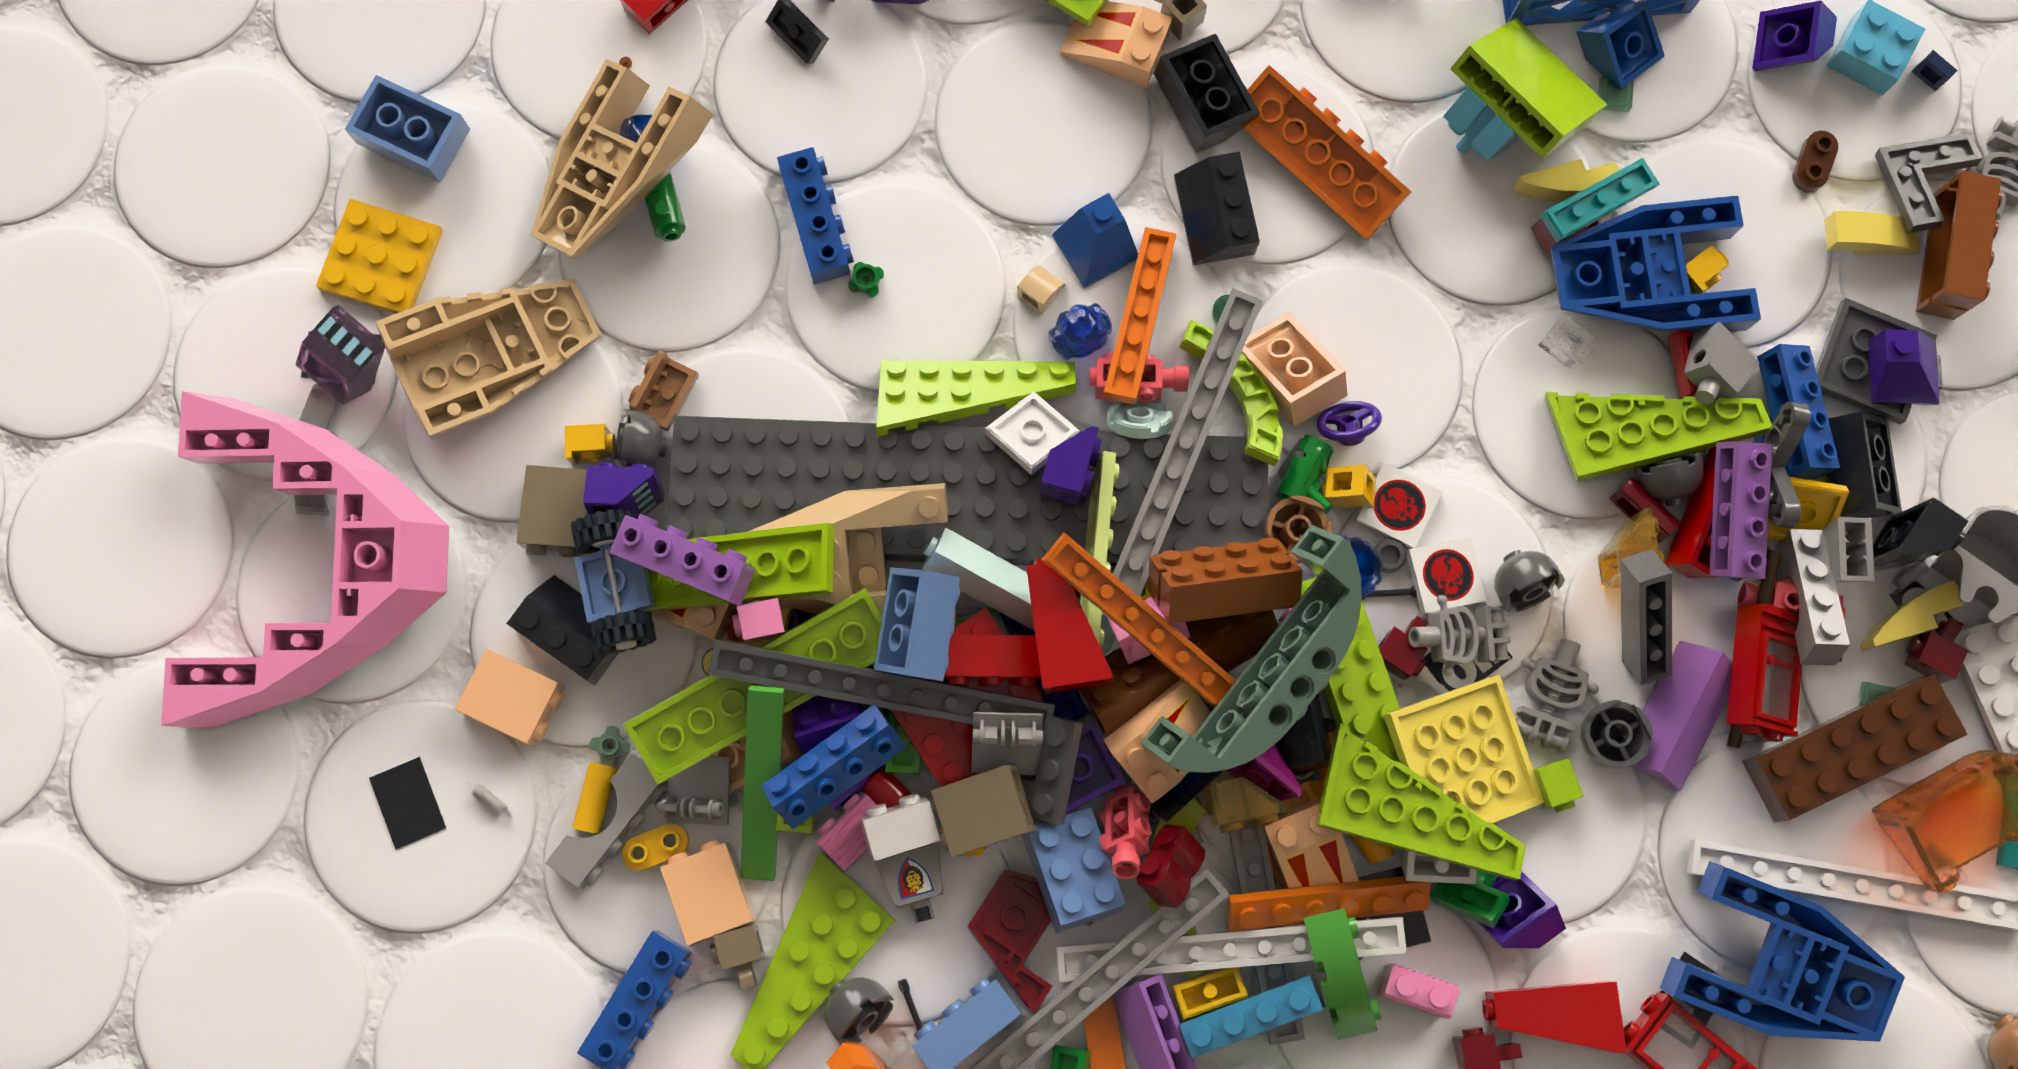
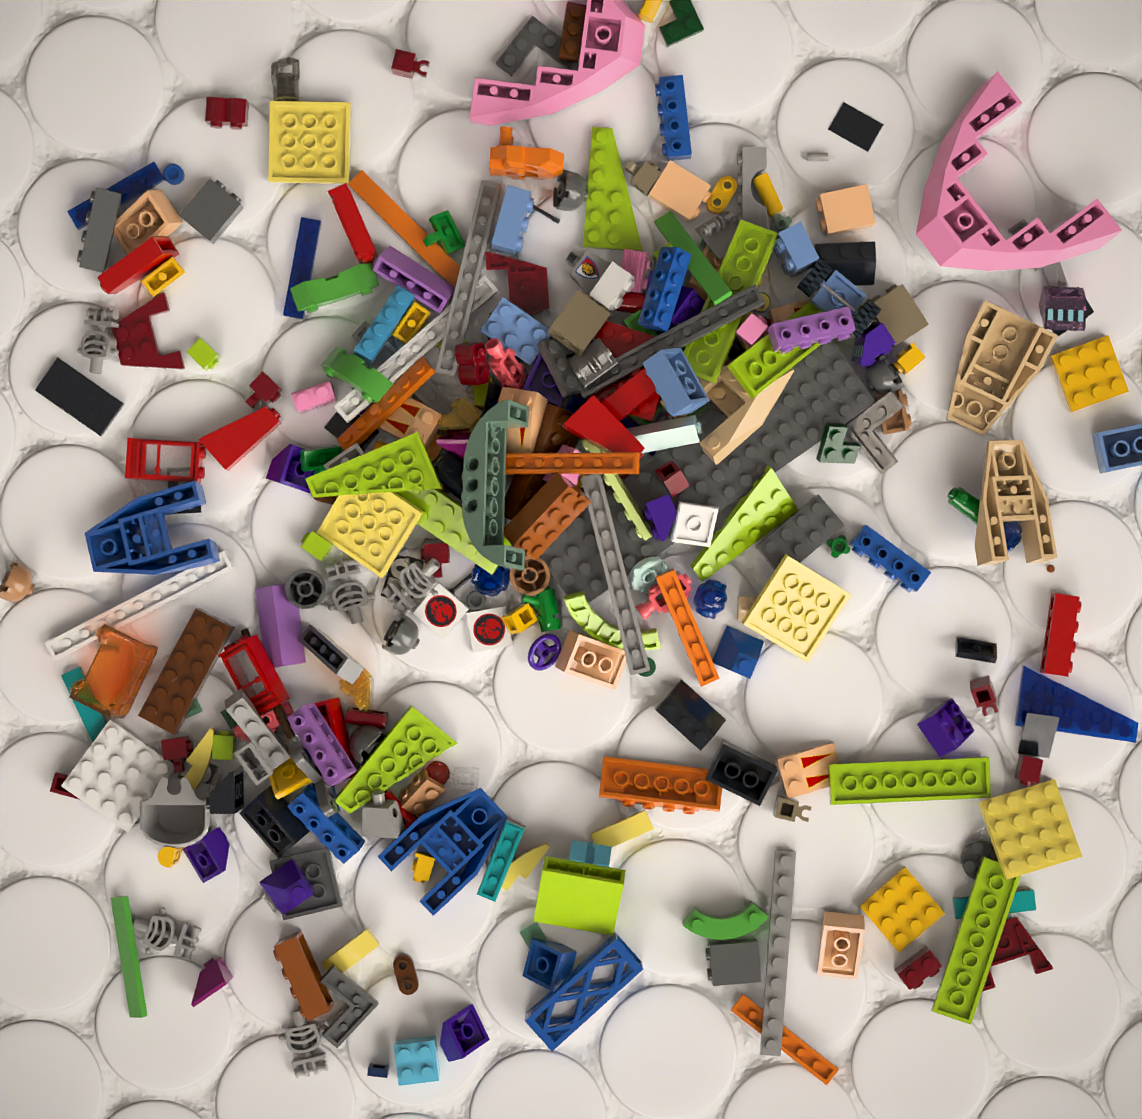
camera: 145 degrees right, 10 degrees up
(617, 687) = (795, 250): none -> medium blue brick
(723, 382) = (863, 432): none -> plate
(771, 399) = (833, 447): none -> plate
(905, 325) = (801, 533): none -> dark grey brick
(982, 236) = (796, 608): none -> light yellow plate
(1017, 508) = (672, 478): none -> dark red brick
(1408, 133) = (623, 830): none -> light yellow slope
(1607, 366) = (440, 767): none -> clear red plate
(1642, 363) = (420, 793): none -> medium nougat bracket
(1868, 611) = (224, 745): none -> lime brick
(1980, 482) = (209, 854): none -> dark purple slope

